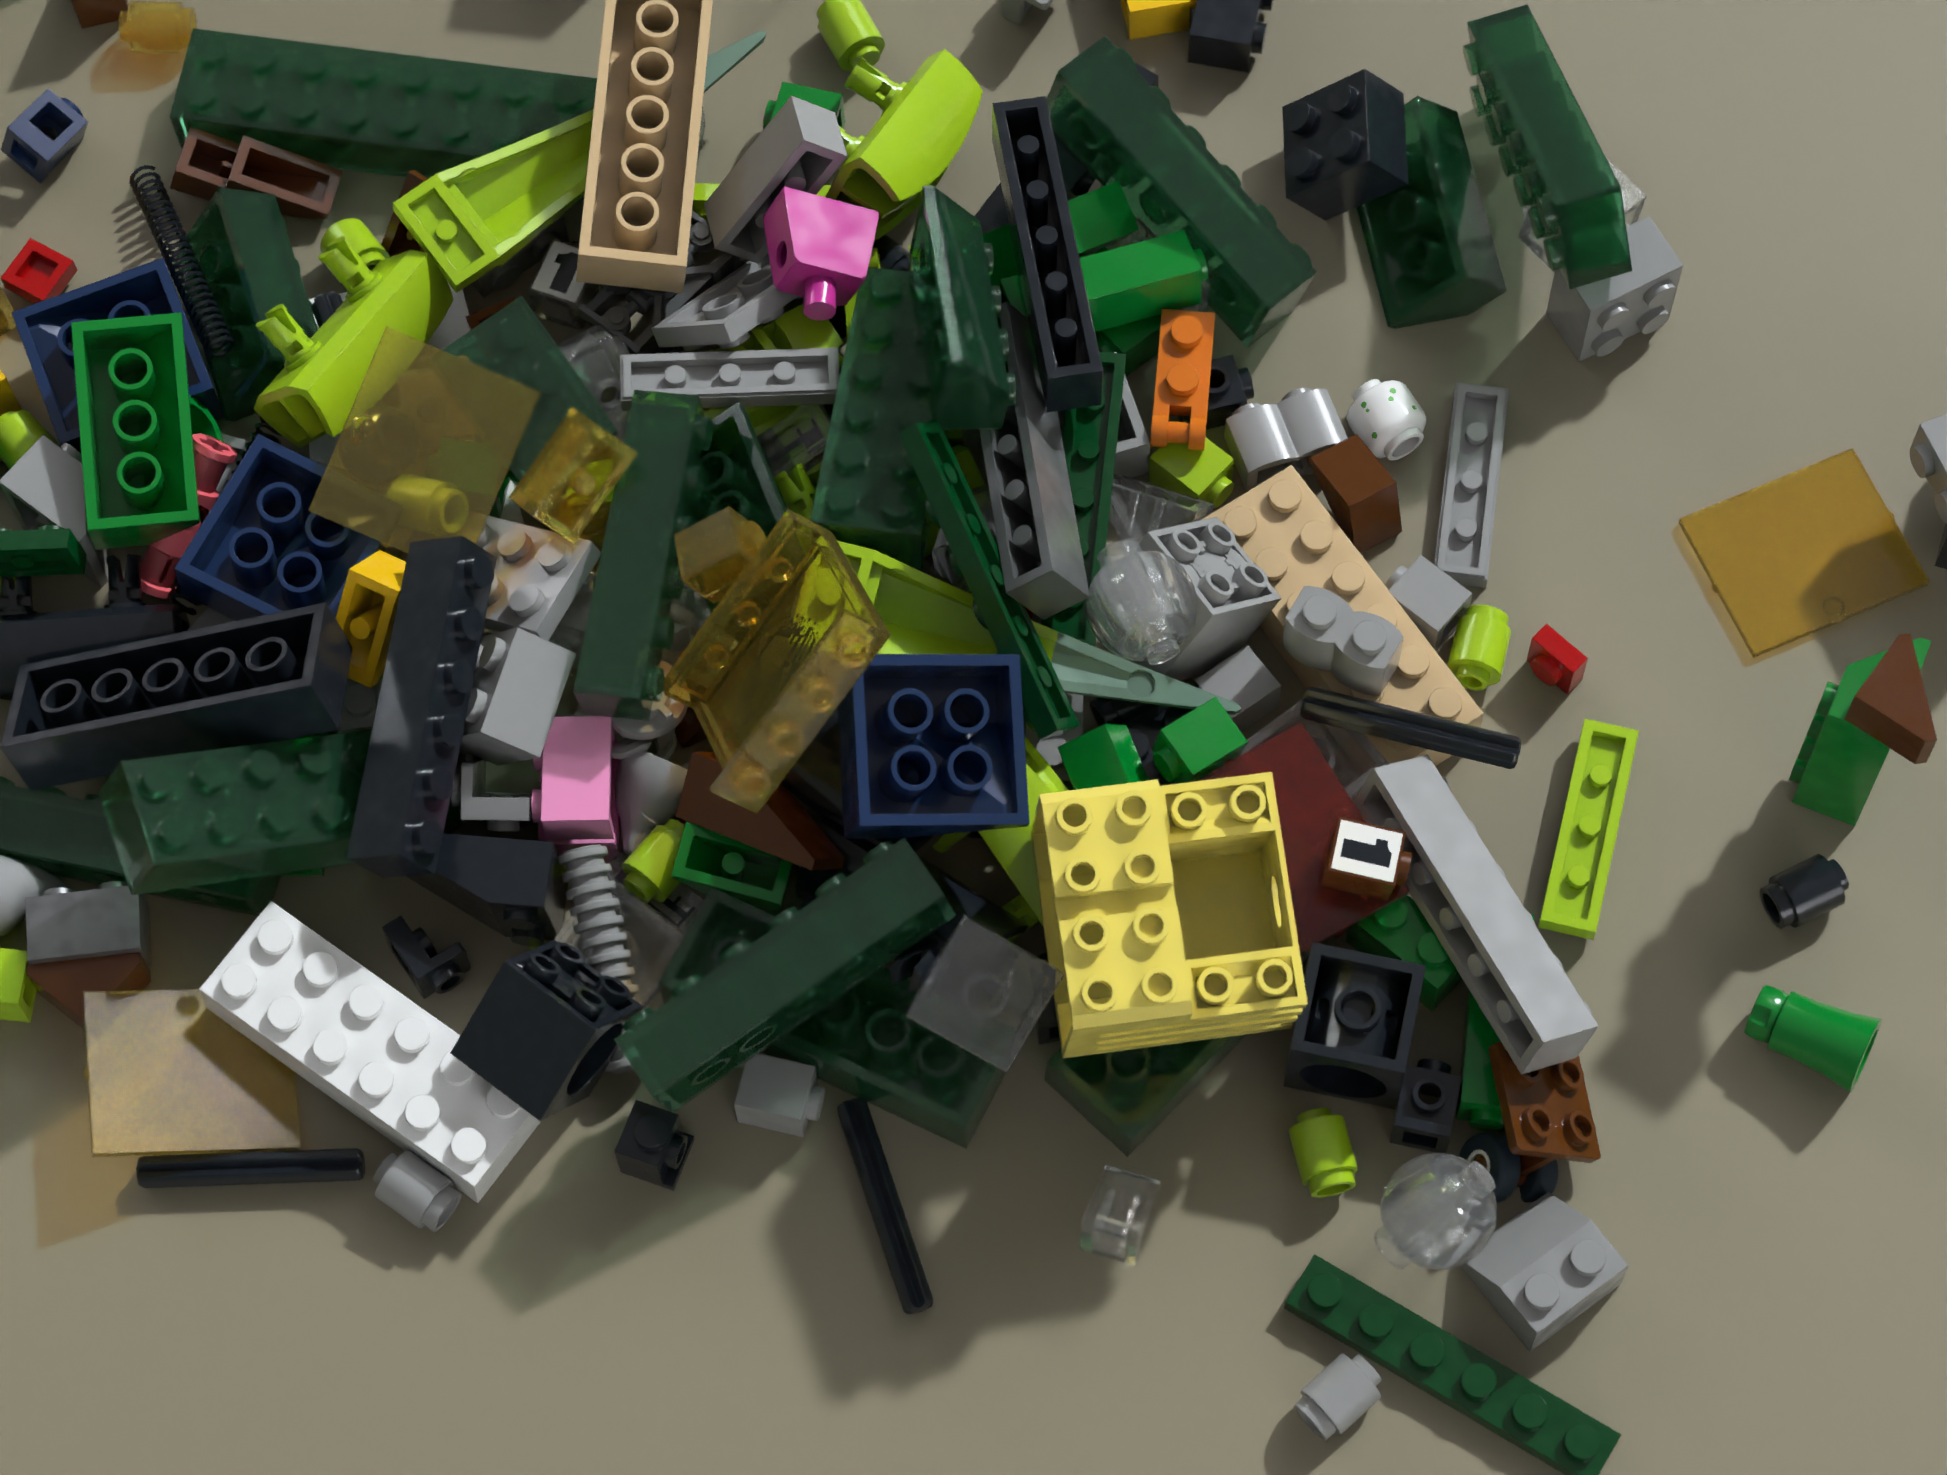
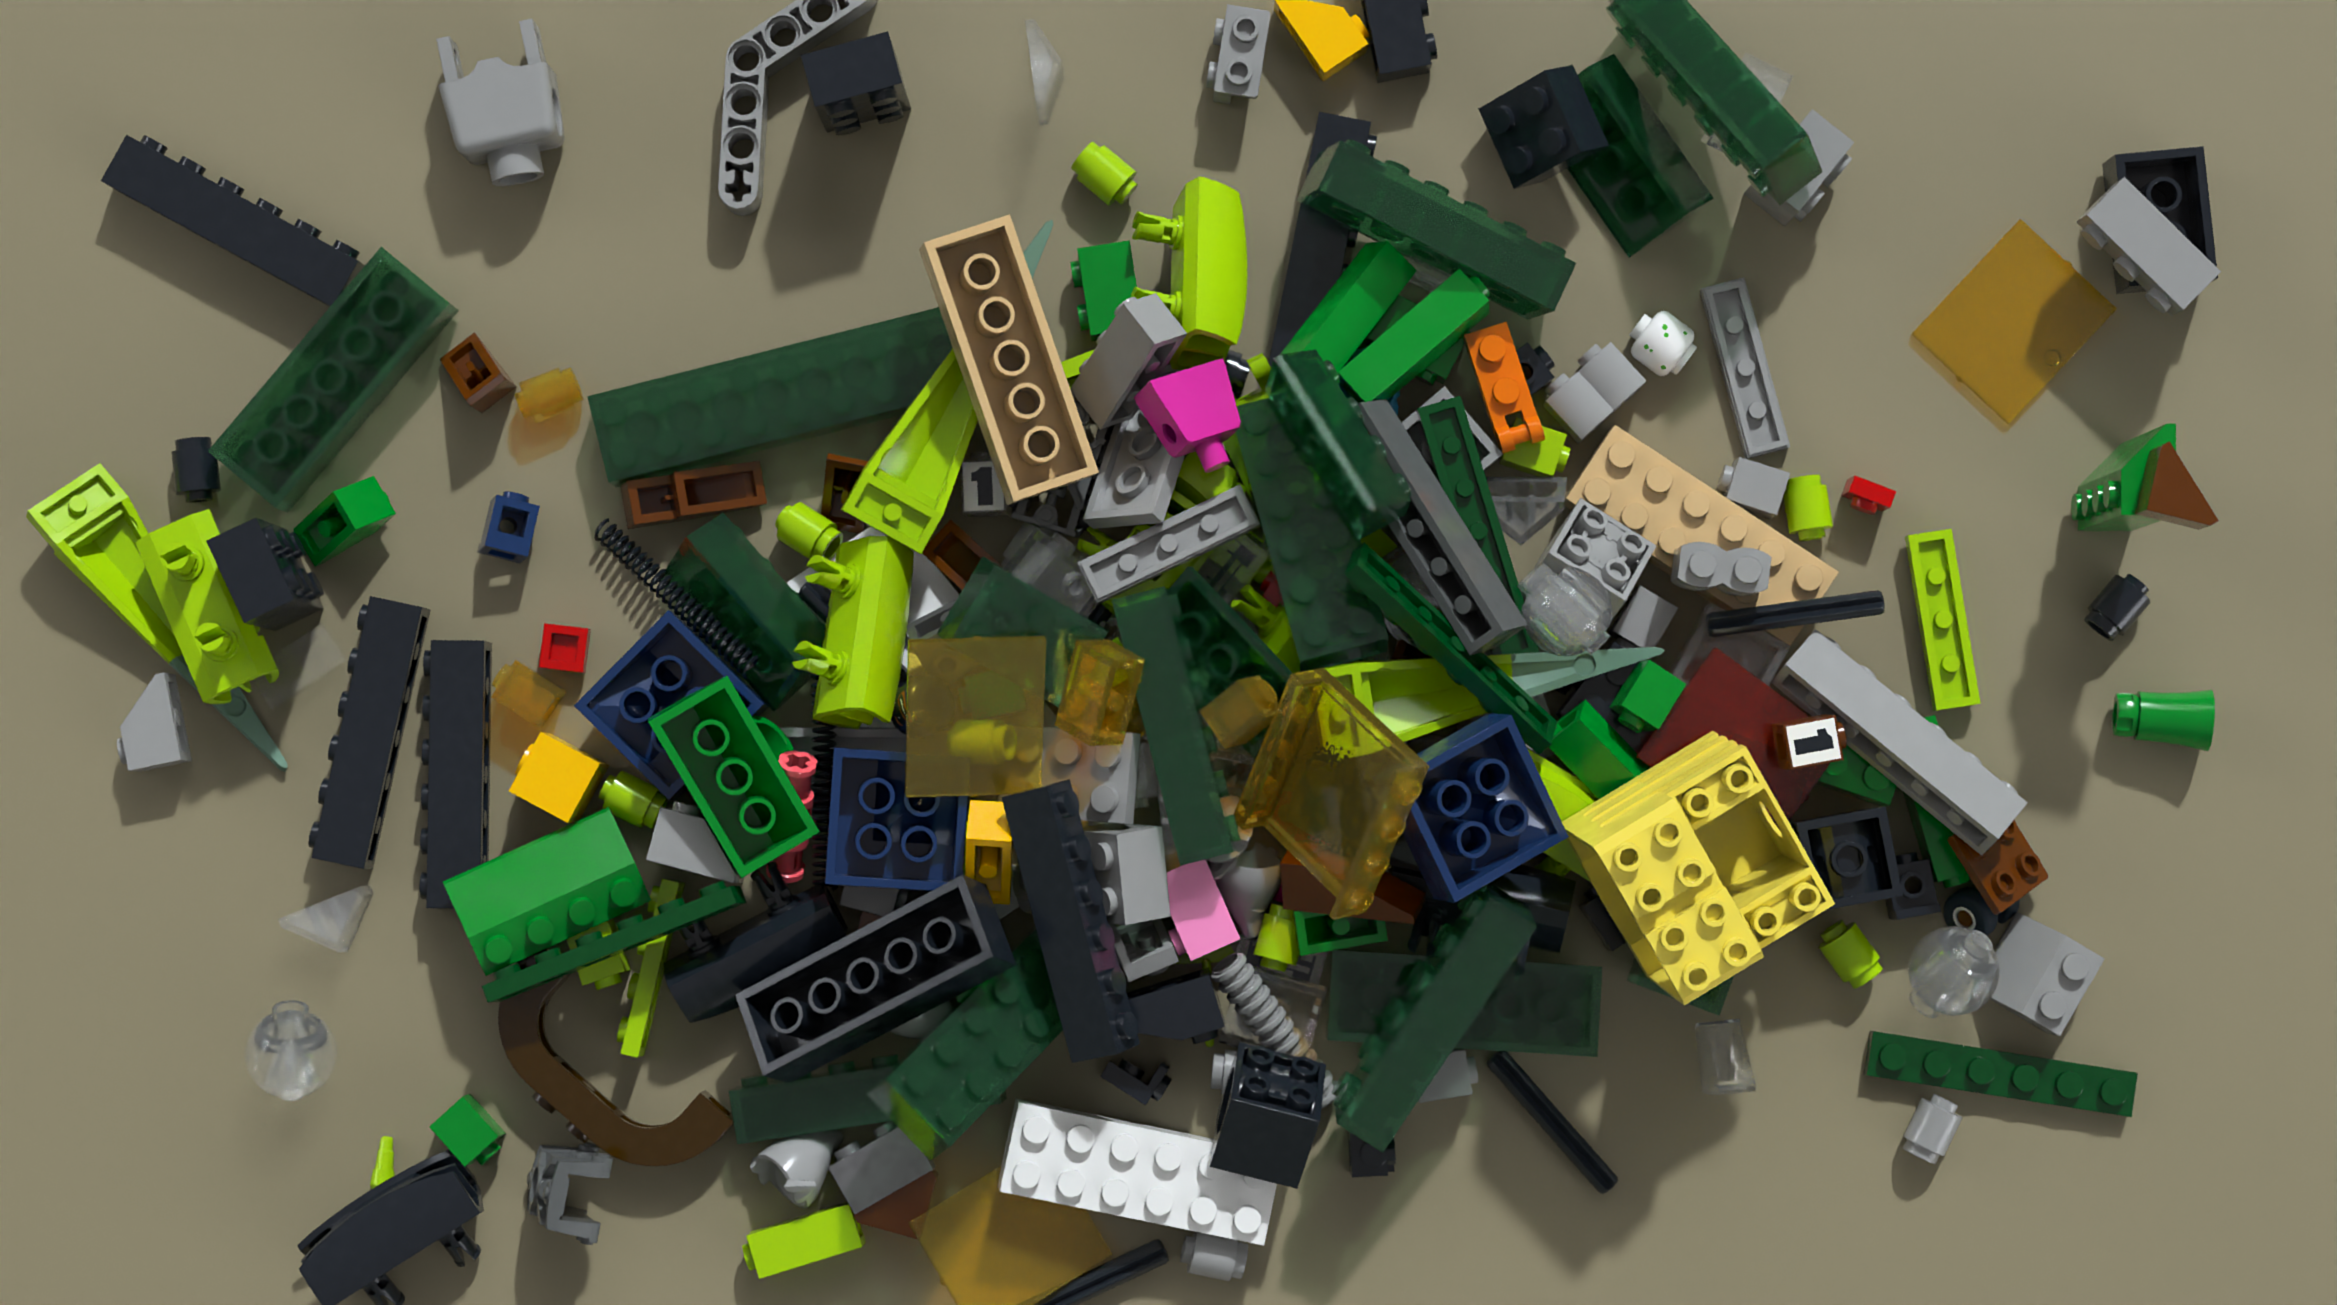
camera: 25 degrees left, 20 degrees up
(984, 993) = (1575, 960): clear slope -> none
(1047, 255) = (1374, 350): black brick -> none
(1358, 492) = (1667, 418): reddish brown slope -> none

